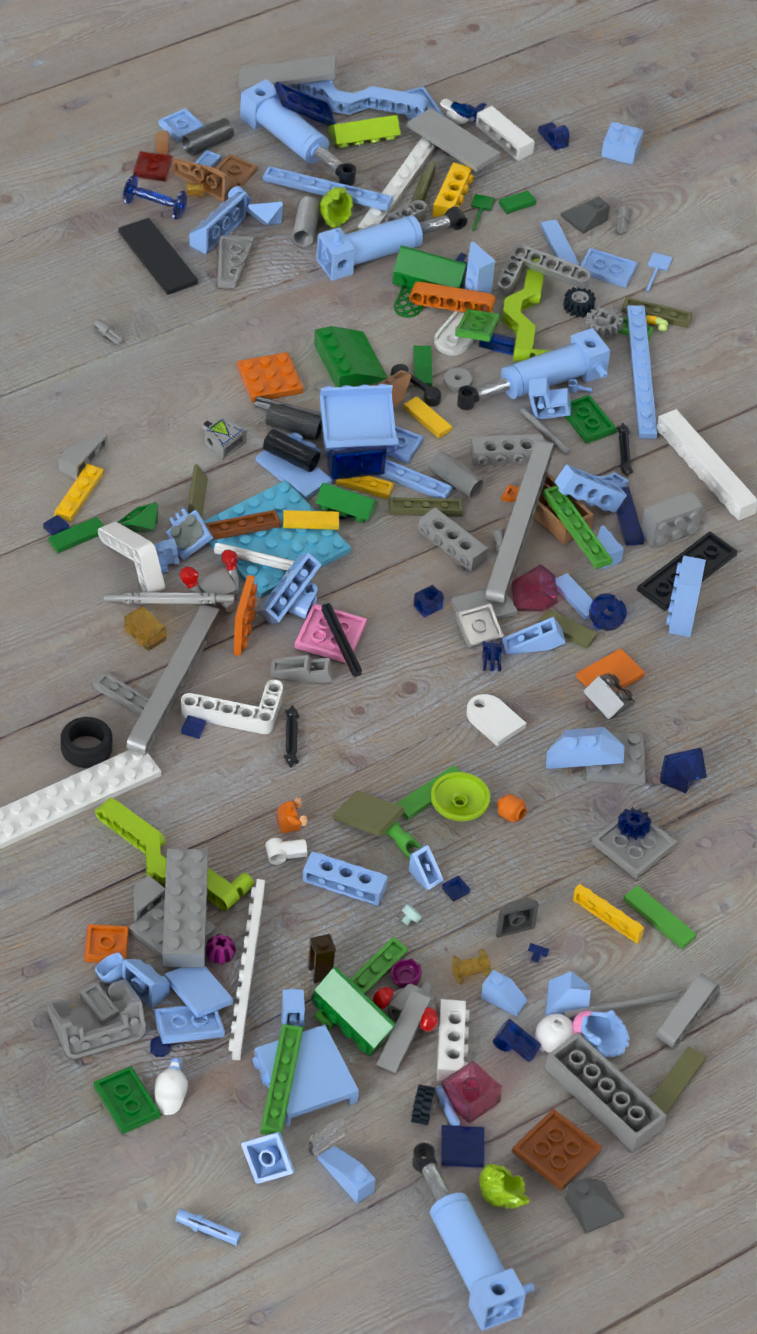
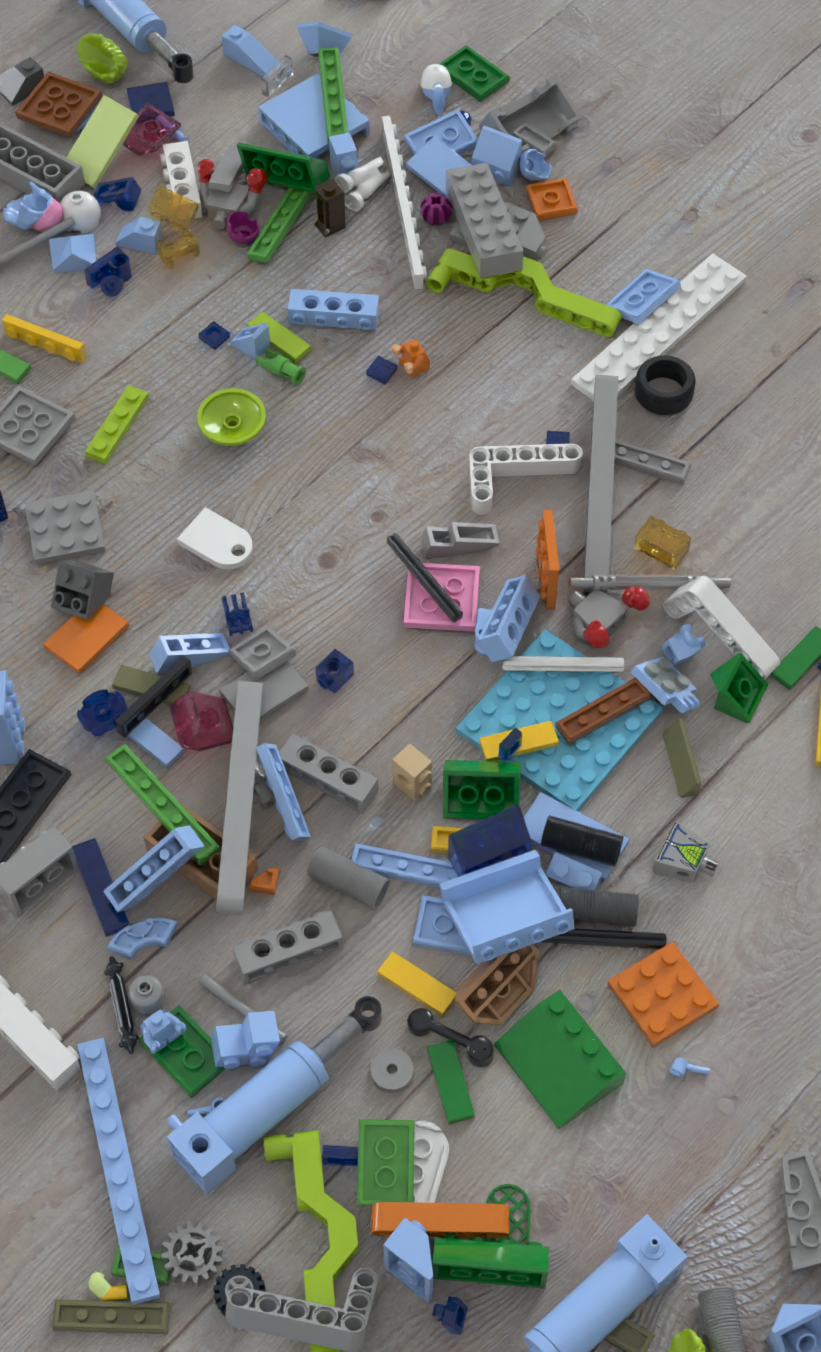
camera: 170 degrees right, 10 degrees up
(68, 824) = (644, 295): none -> light blue tile
(273, 995) = (365, 180): none -> white piece
(275, 340) = (681, 1065): none -> light blue hand
(281, 850) = (411, 322): white piece -> none
(291, 736) = (444, 458): black wheel -> none
(319, 821) = (381, 370): none -> clear blue tile
(320, 506) = (510, 744): none -> tile
(368, 813) = (328, 379): olive tile -> none
(394, 516) = (412, 772): none -> tan brick
(399, 872) = (282, 338): none -> lime tile
(410, 914) = (253, 290): light aqua tile -> none
(421, 506) = (378, 826): olive tile -> none
(421, 798) = (276, 424): bright green tile -> none
(423, 1104) = (194, 110): black wheel -> none
(469, 990) = (172, 208): none -> clear yellow brick
(488, 525) = (286, 801): none -> light blue plate
(511, 808) = (171, 425): orange head -> none
(517, 917) = (140, 300): dark grey slope -> none
(524, 1085) = (102, 139): none -> yellowish green tile
(533, 969) = (113, 262): none -> clear blue plate
(556, 830) = (116, 424): none -> lime plate
(570, 604) = (153, 697): none -> black tile
(585, 748) = (98, 506): light blue wedge -> none
(603, 418) = (160, 1029): none -> light blue piece
(607, 443) = (146, 994): none -> light grey head
(613, 548) = (120, 813): light blue slope -> none
(634, 823) = (28, 427): clear blue gear -> none

